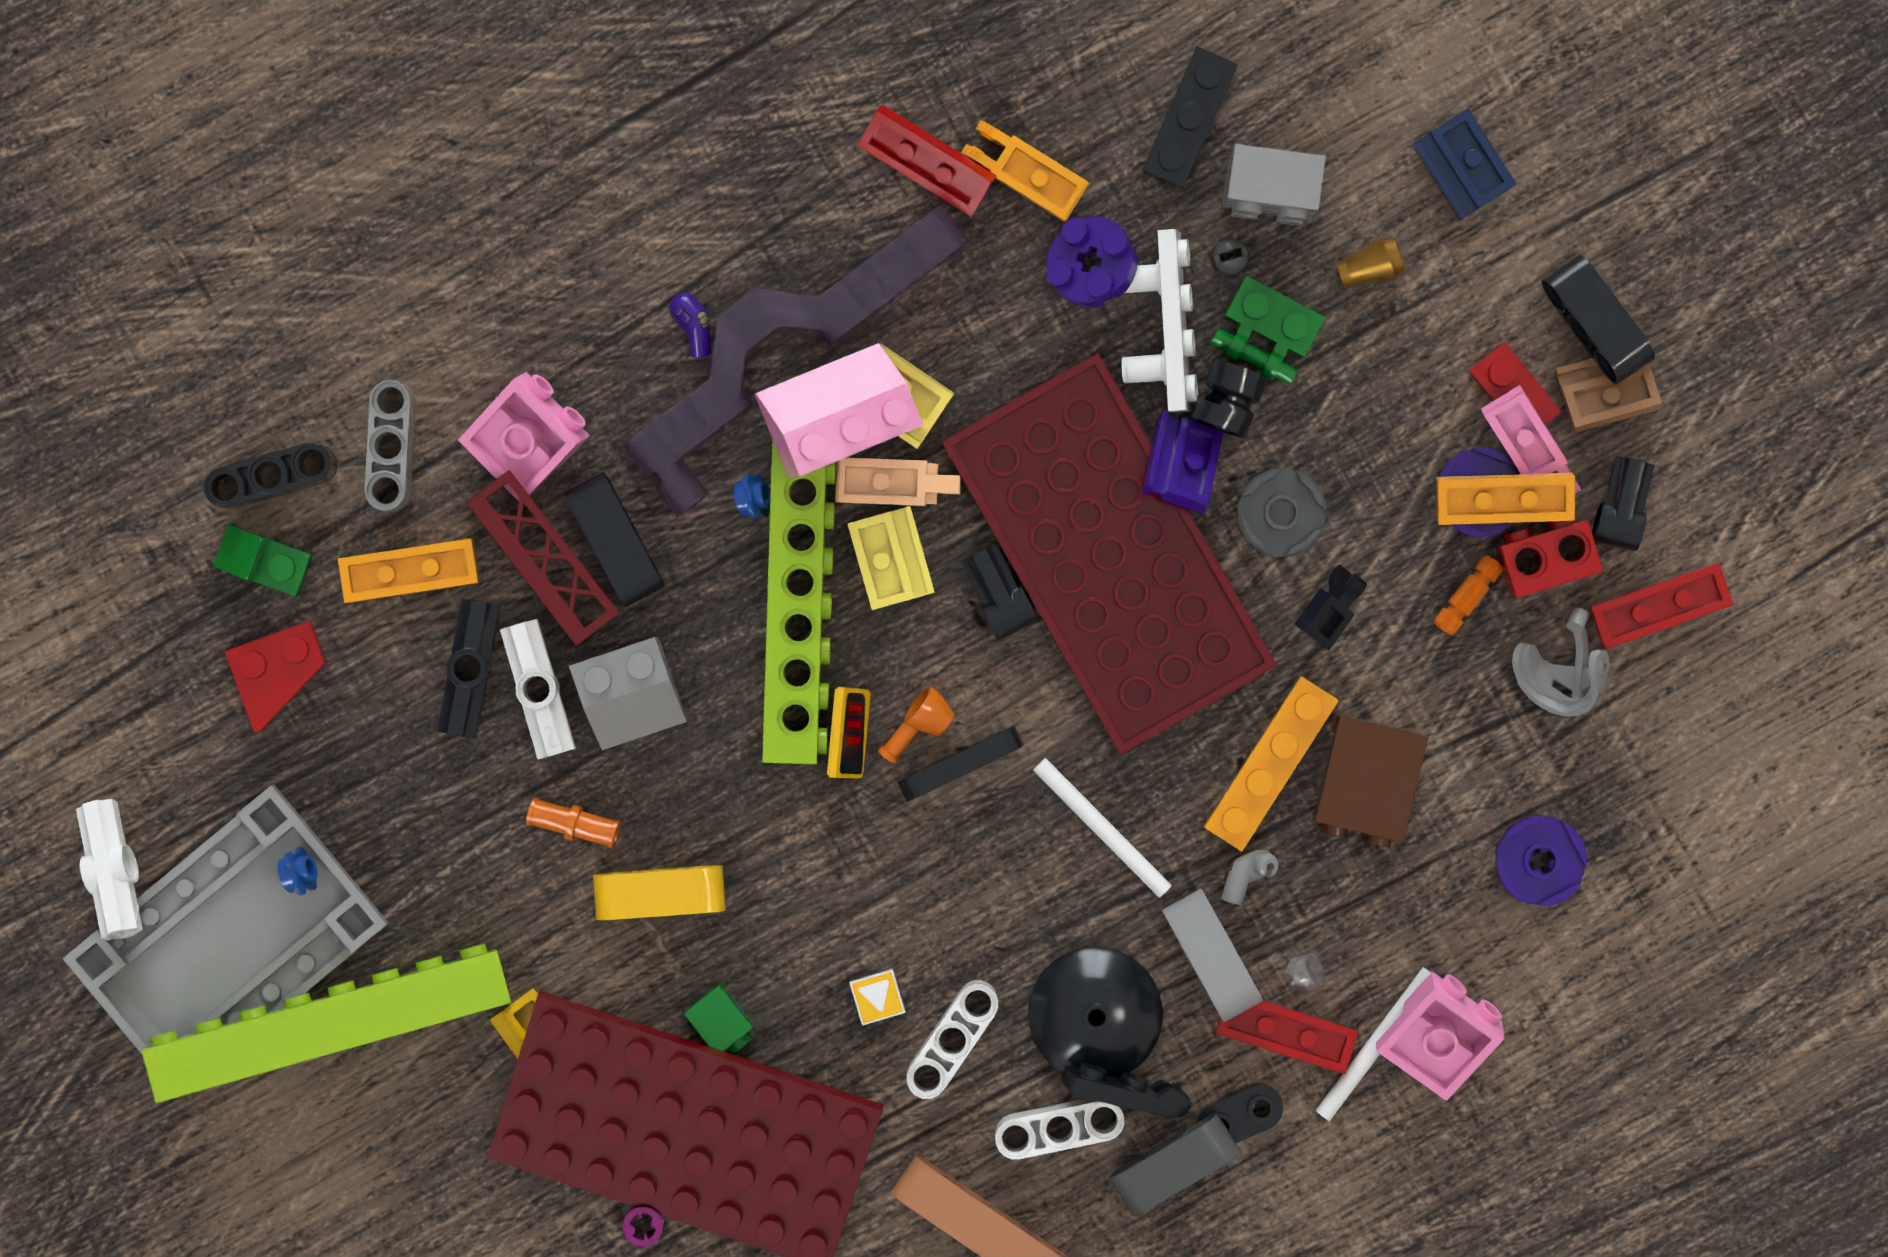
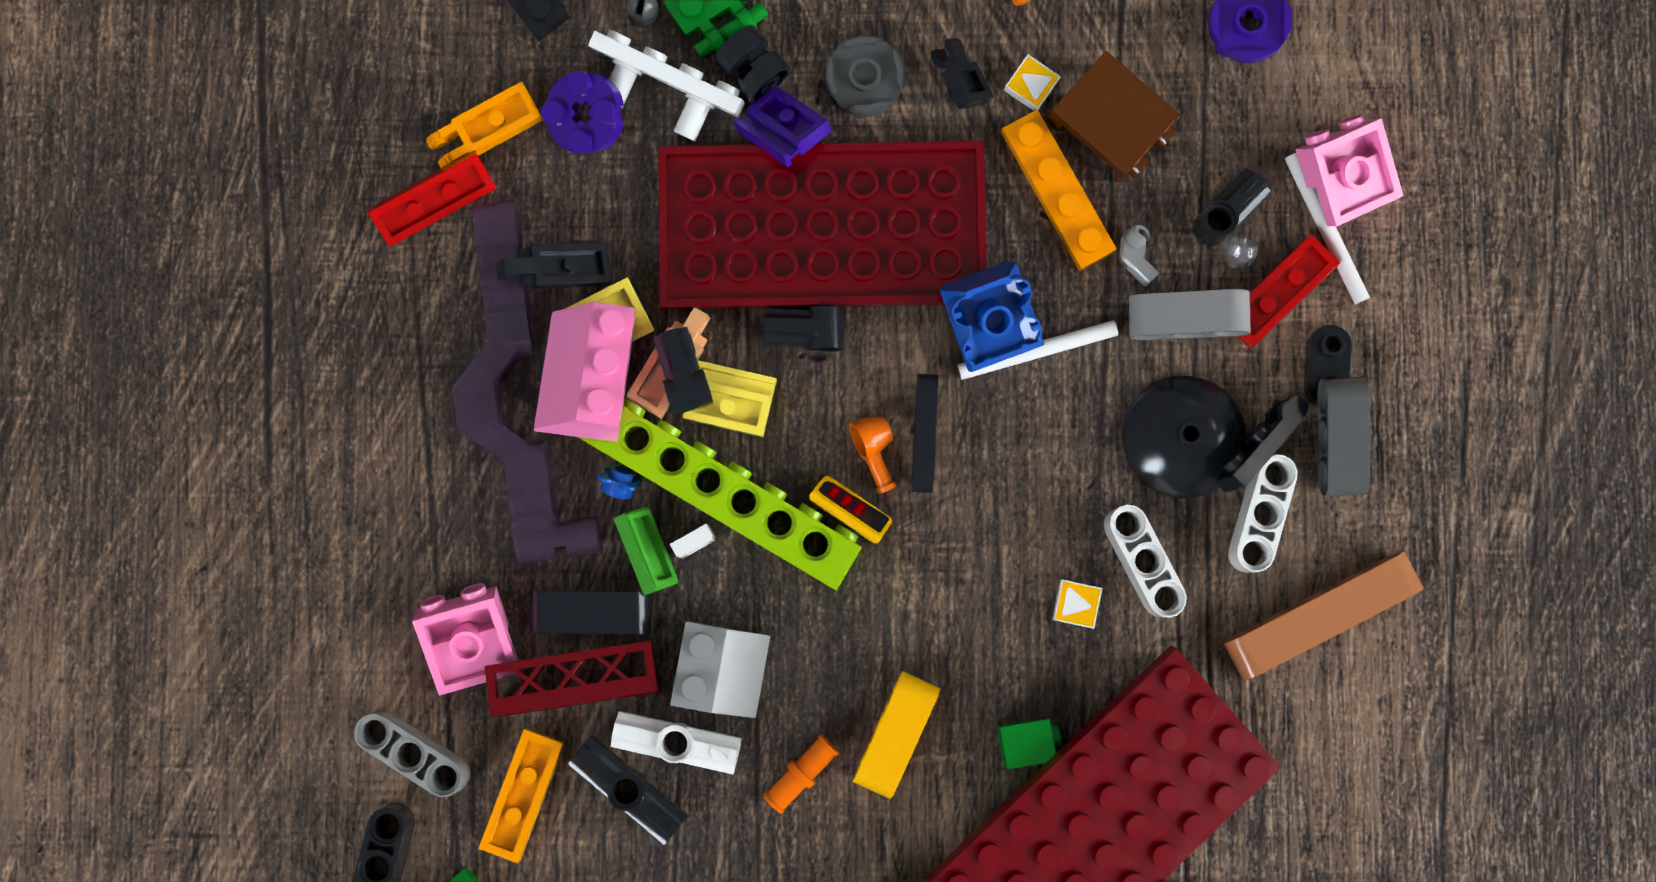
camera: 50 degrees left, 5 degrees down
(694, 321) = (454, 451): dark purple arm -> none
(701, 559) = (646, 550): none -> bright green tile
(734, 600) = (693, 541): none -> white tile
(881, 508) = (685, 381): none -> black piece
(927, 324) = (558, 266): none -> black hinge
(1108, 766) = (992, 315): none -> blue slope
(1346, 940) = (1231, 207): none -> black piece
(1363, 681) = (1032, 83): none -> tile

